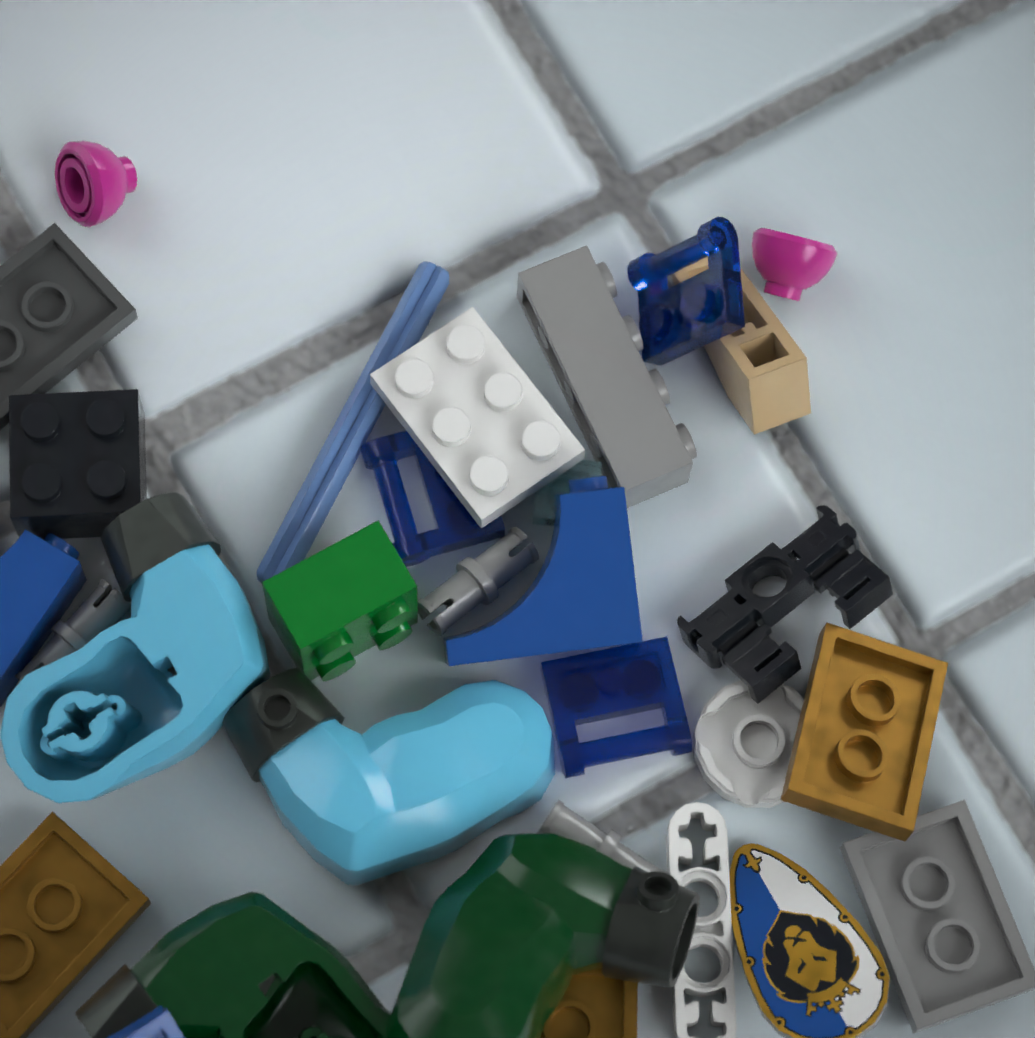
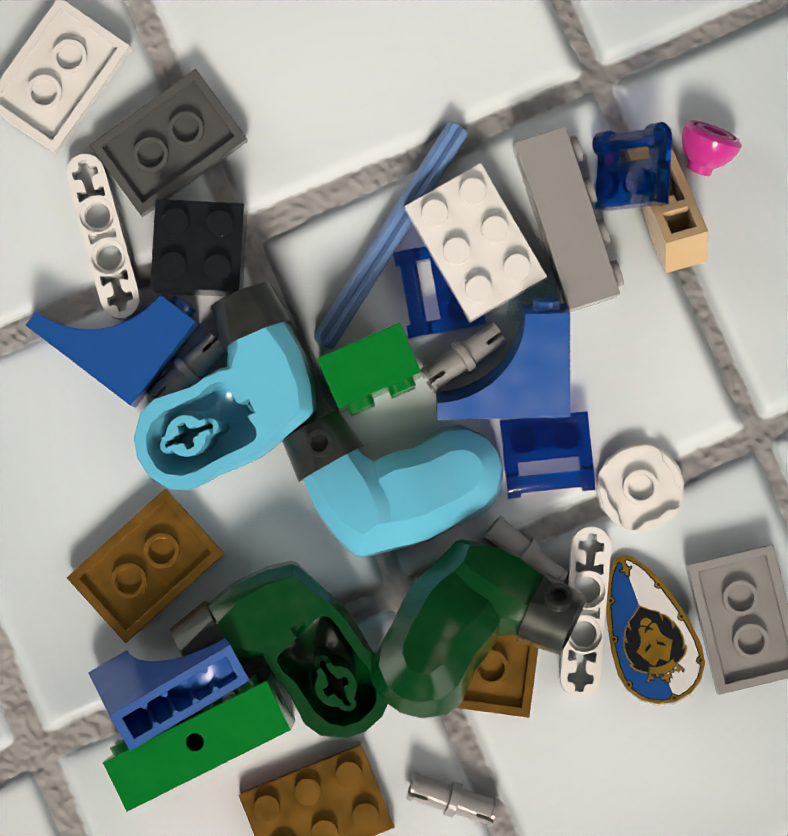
camera: 10 degrees right, 15 degrees up
(92, 181) = (224, 39): dark pink brick -> none
(731, 621) = (632, 403): black piece -> none
(865, 732) = (712, 492): pearl gold plate -> none

